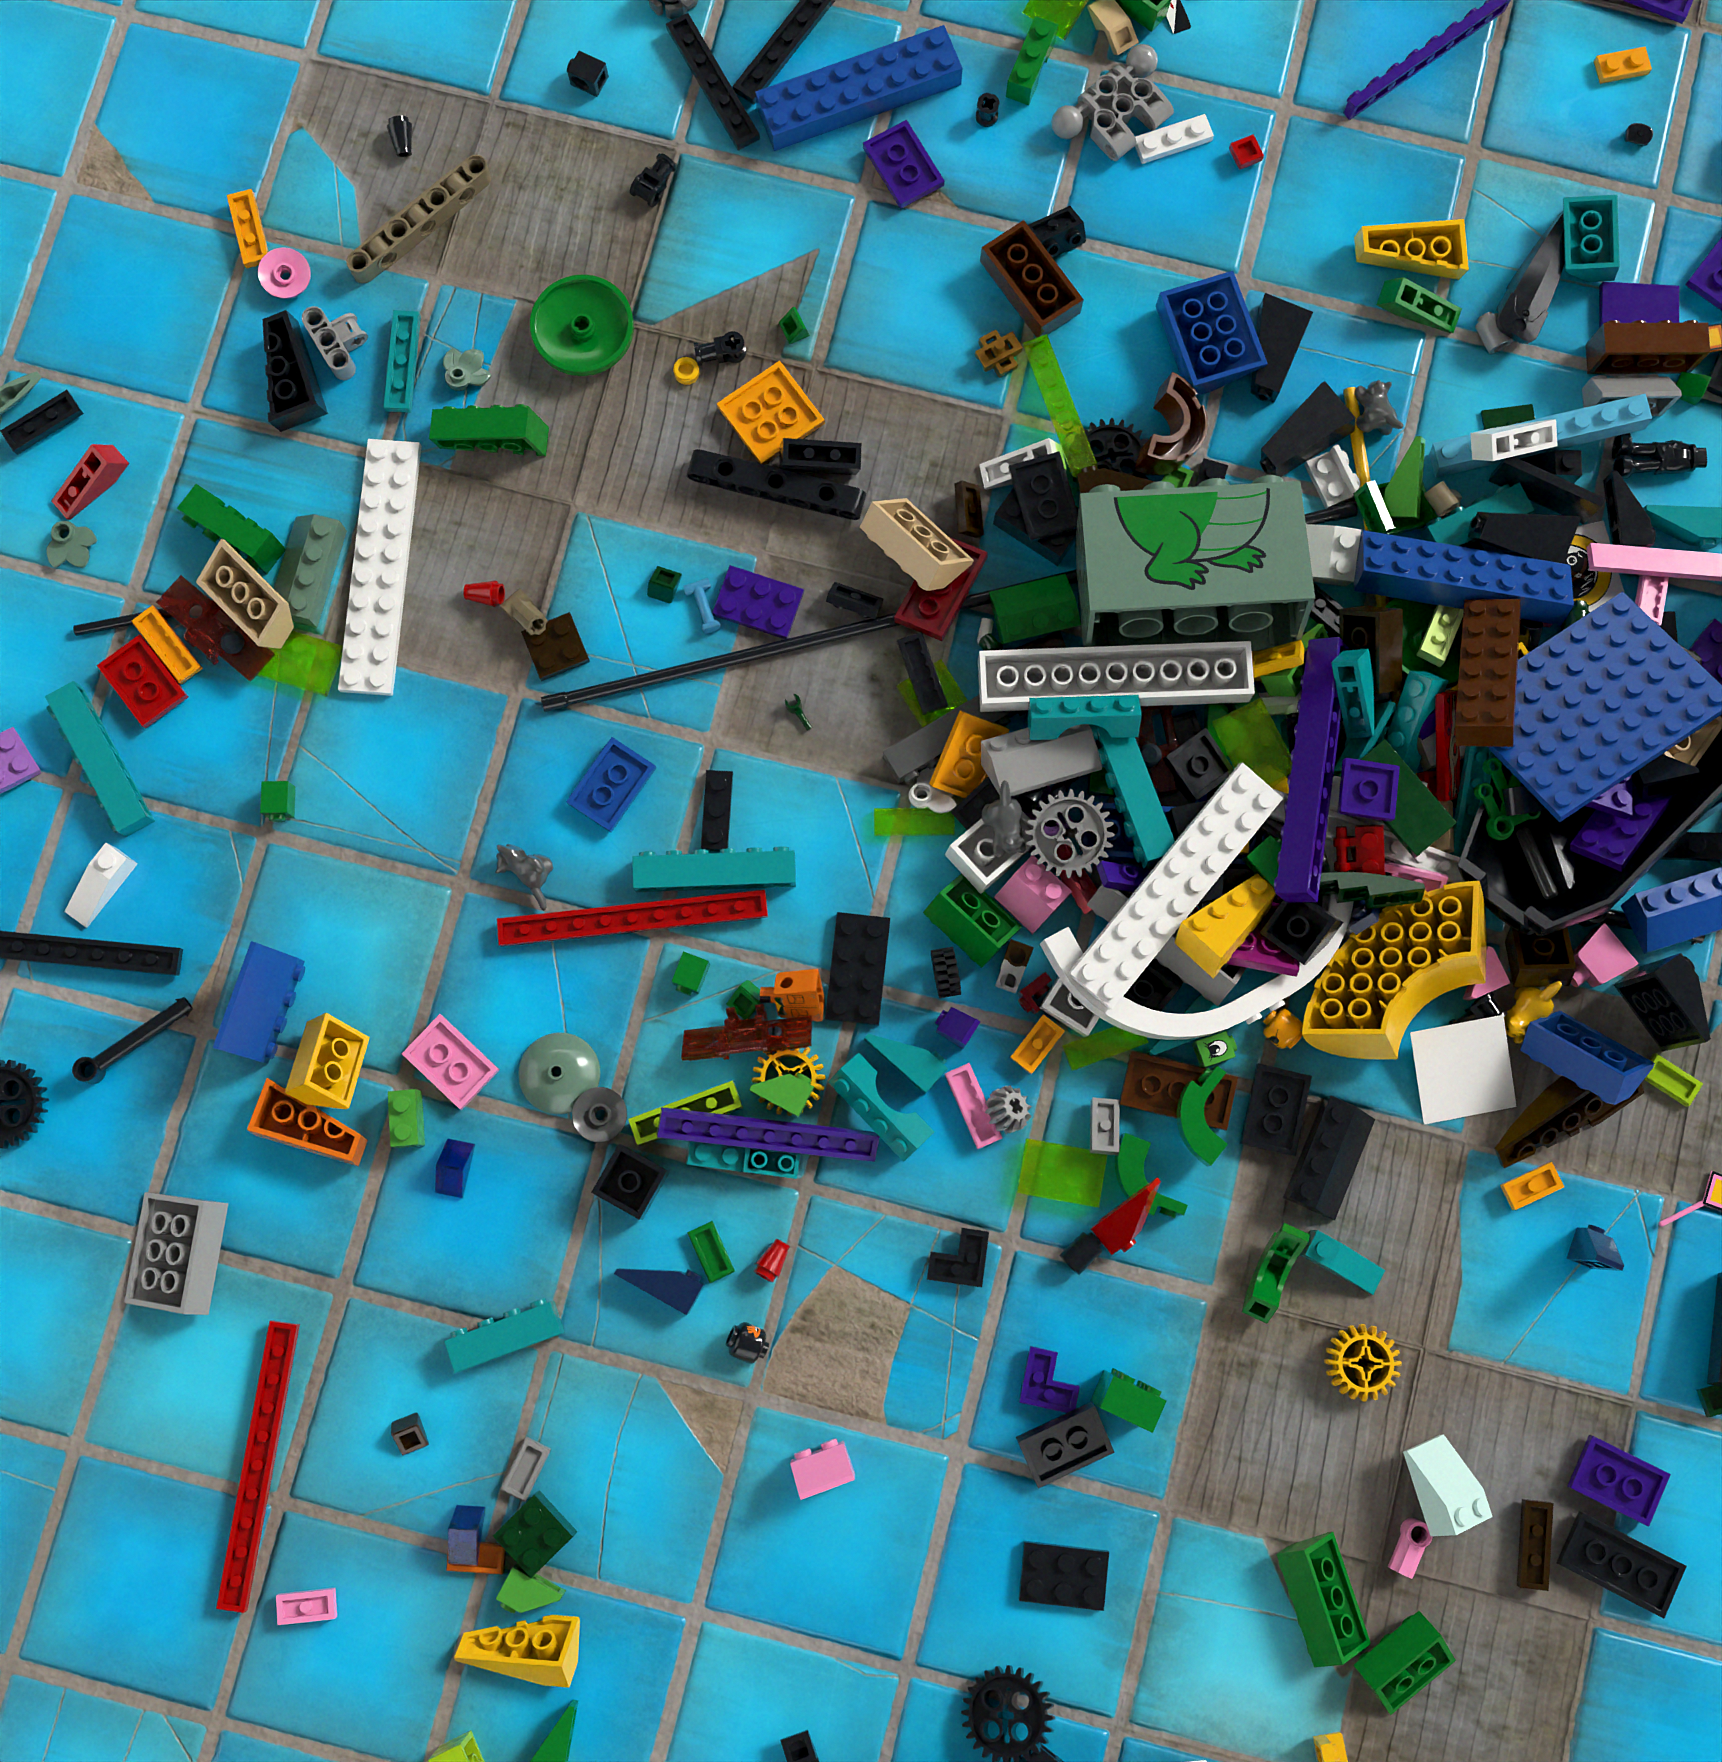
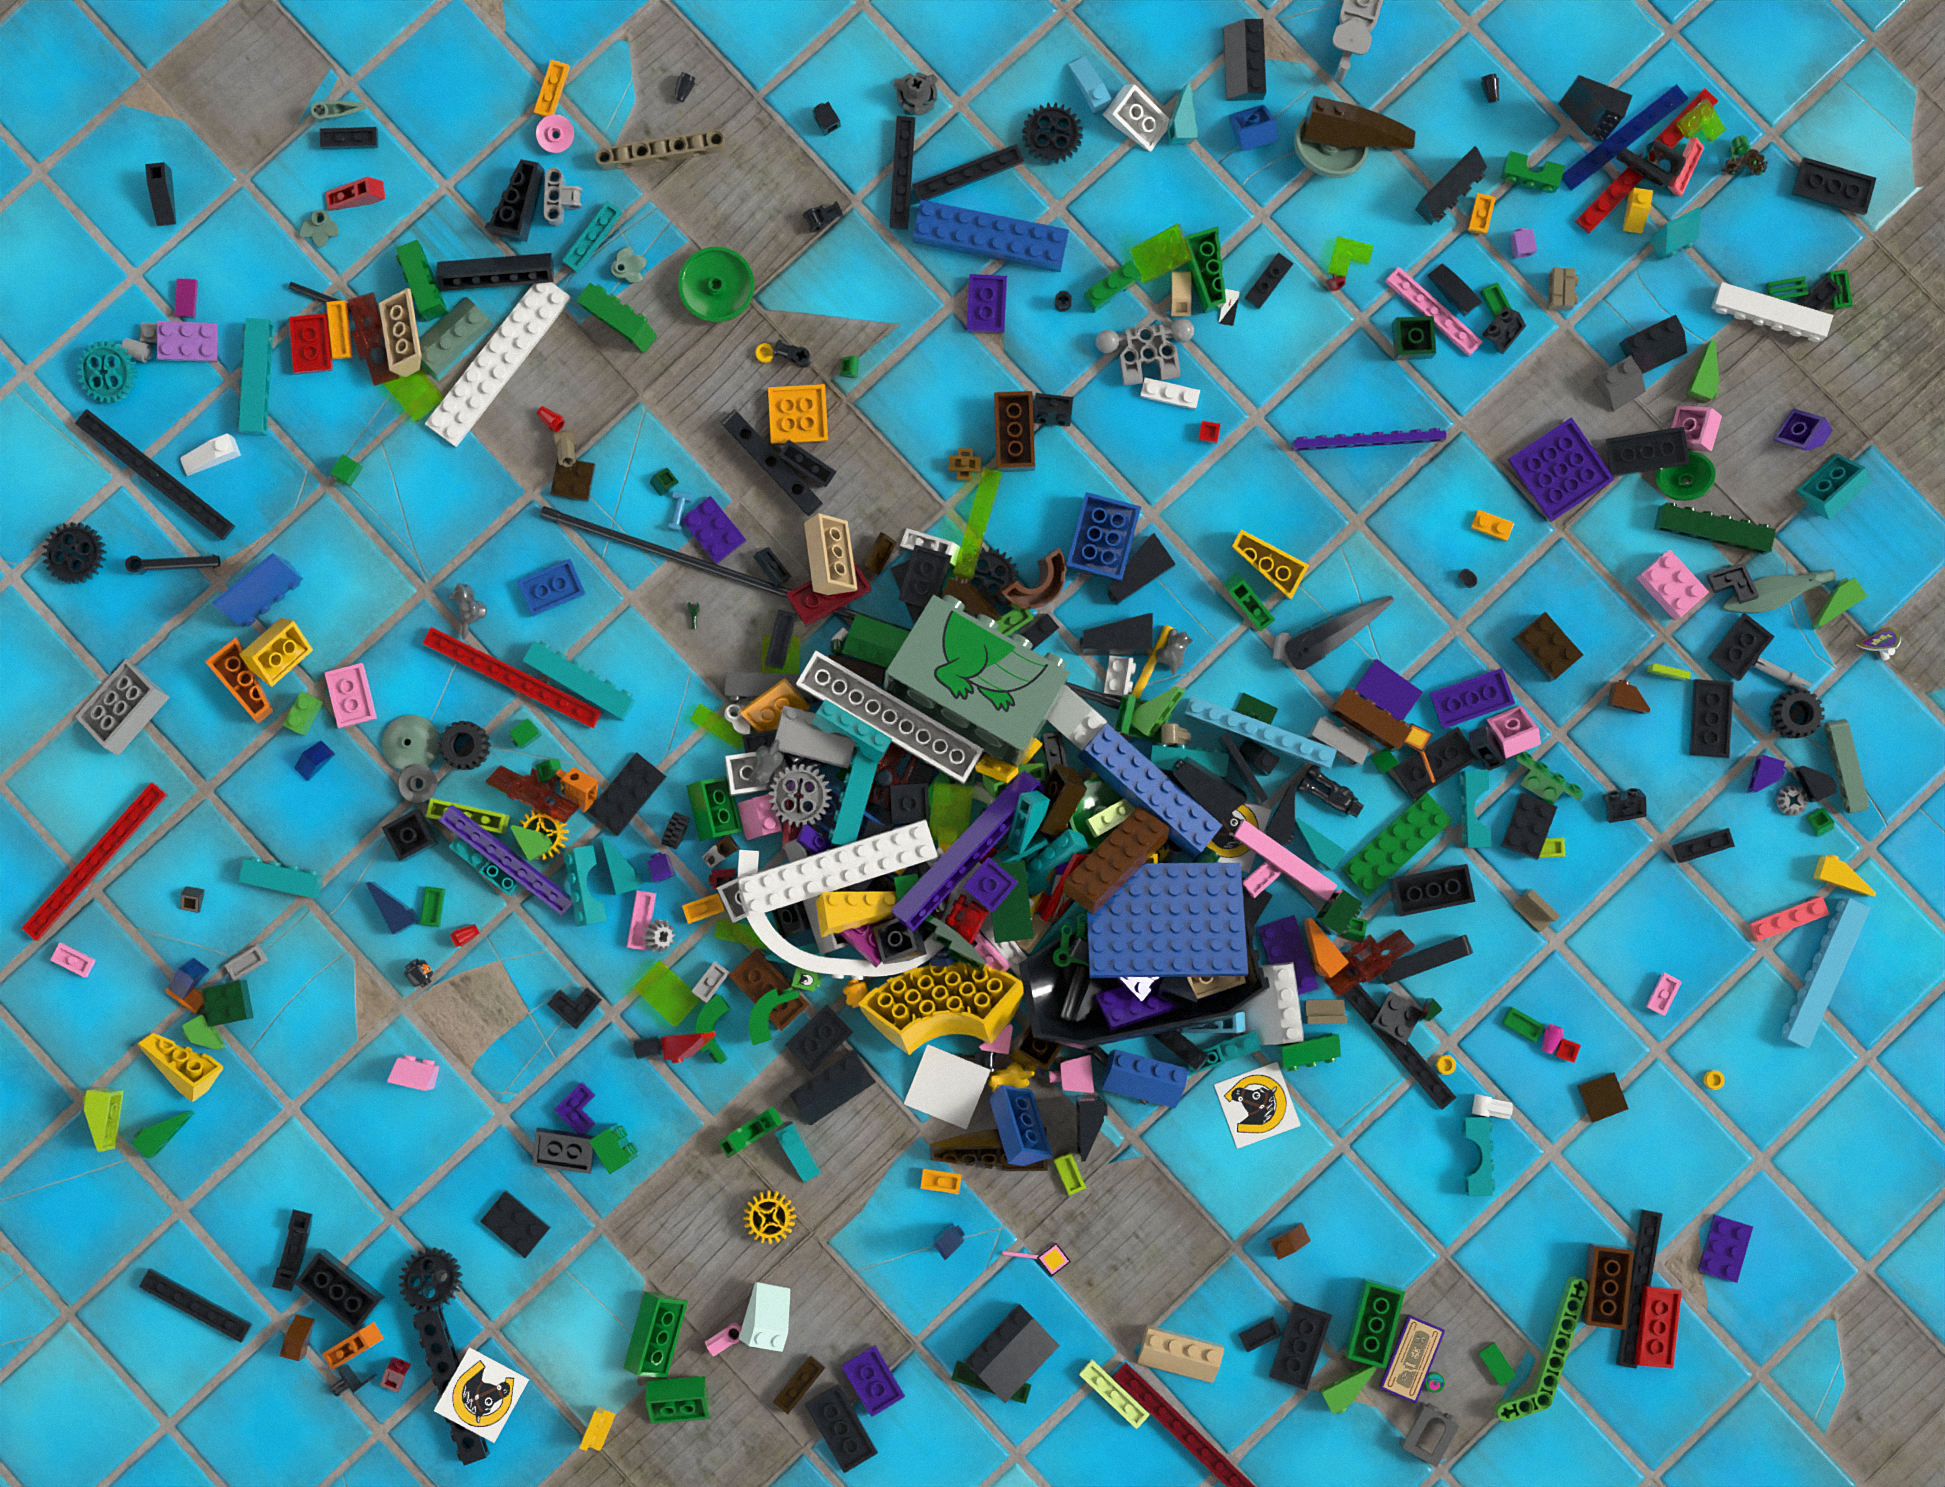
camera: 30 degrees right, 5 degrees up
(312, 465) = (495, 272): none -> black brick
(610, 1016) = (448, 741): none -> black tyre
(717, 810) = (605, 643): black plate -> none
(1513, 440) = (1234, 727): white slope -> none
(1591, 237) = (1385, 626): teal slope -> none

